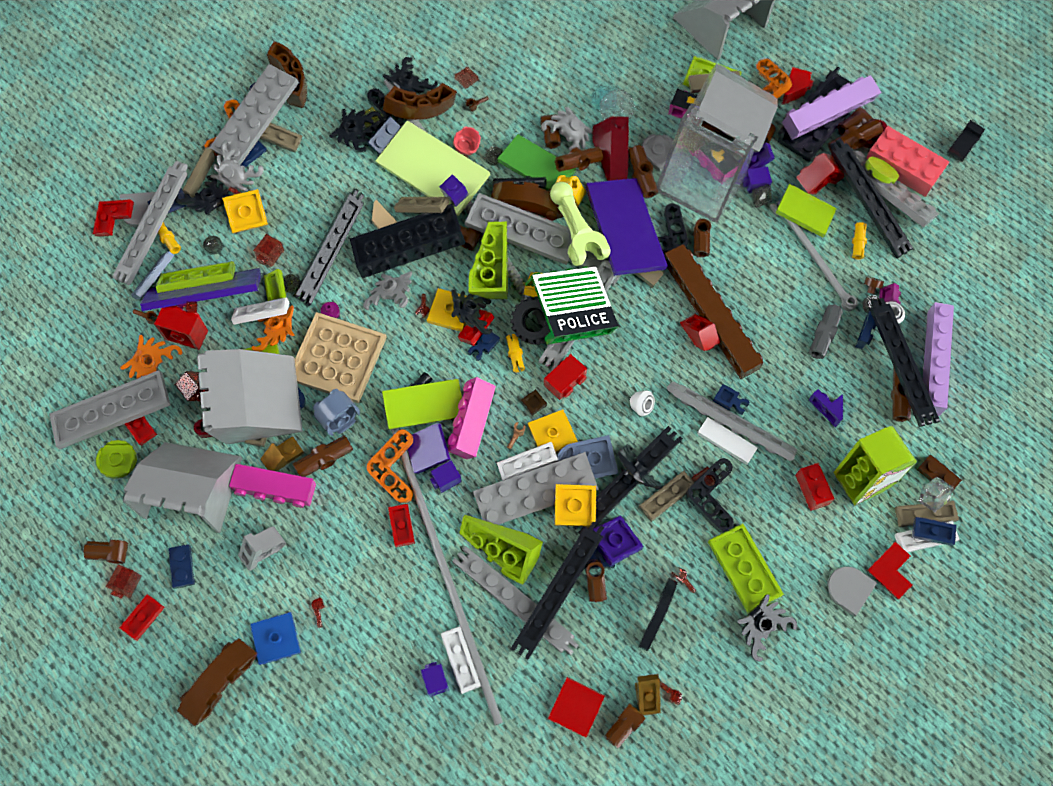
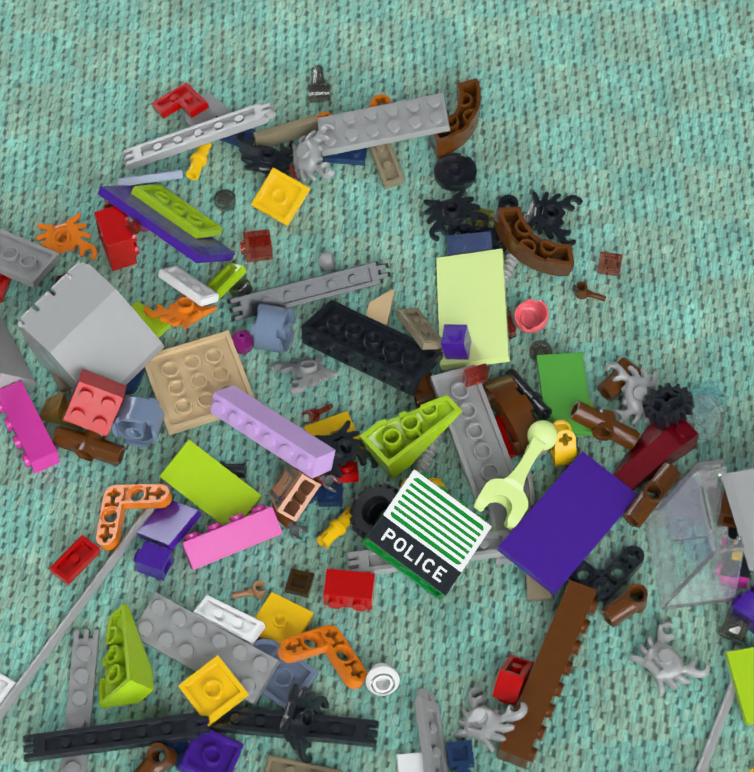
camera: 55 degrees right, 10 degrees down
(185, 132) = (318, 88): none -> clear smoke pin
(301, 428) = (94, 402): none -> brick
(318, 221) = (326, 261): none -> light grey hinge
(322, 106) = (454, 178): none -> black tile
(342, 284) = (273, 328): none -> sand blue brick
(424, 337) = (272, 431): none -> lavender brick
(474, 357) = (293, 493): none -> torso
(490, 196) = (475, 375): none -> clear red tile
(593, 418) = (325, 645): none -> orange beam
(599, 116) = (668, 404): none -> black gear
(719, 367) = (487, 723): none -> light grey animal
(752, 246) = (665, 662): none -> light grey animal

